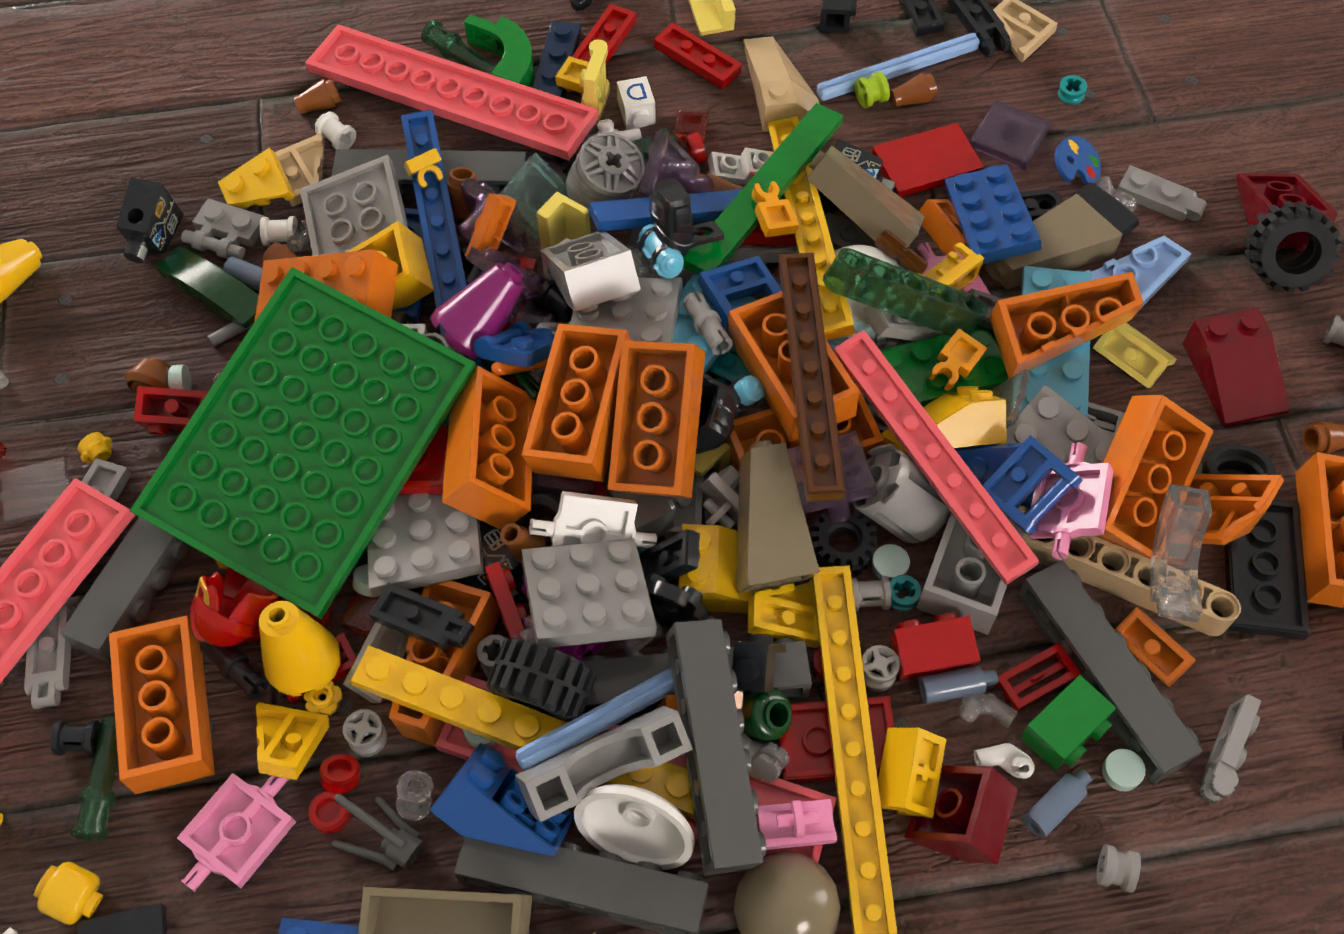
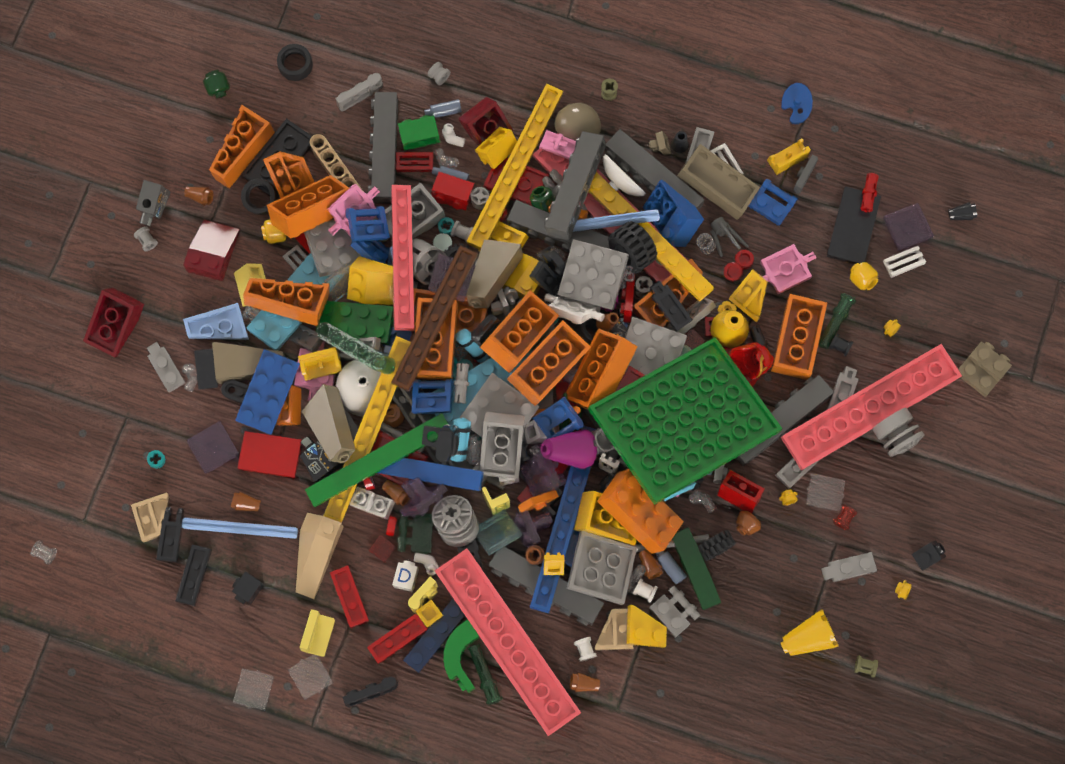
camera: 150 degrees left, 15 degrees up
(147, 219) = (715, 628): black torso -> none
(179, 377) = (733, 515): tile -> none
(187, 320) = (716, 545): none -> black tyre
(360, 725) = (716, 279): light grey wheel -> none
(572, 774) = (604, 197): light grey arch -> none
(756, 662) = (535, 214): black bracket -> none
(774, 215) = (387, 432): light orange plate -> none
(872, 89) = (268, 515): lime wheel -> none
(895, 248) = (337, 384): reddish brown piece -> none
(958, 358) = (347, 314): light orange plate -> none
(1082, 159) = (191, 406): blue piece -> none
(1123, 770) = (407, 108): light aqua tile -> none
(1155, 647) = (354, 149): orange slope -> none
(1177, 552) = (327, 165): clear arch -> none
(1307, 267) = (139, 286): black tyre -> none

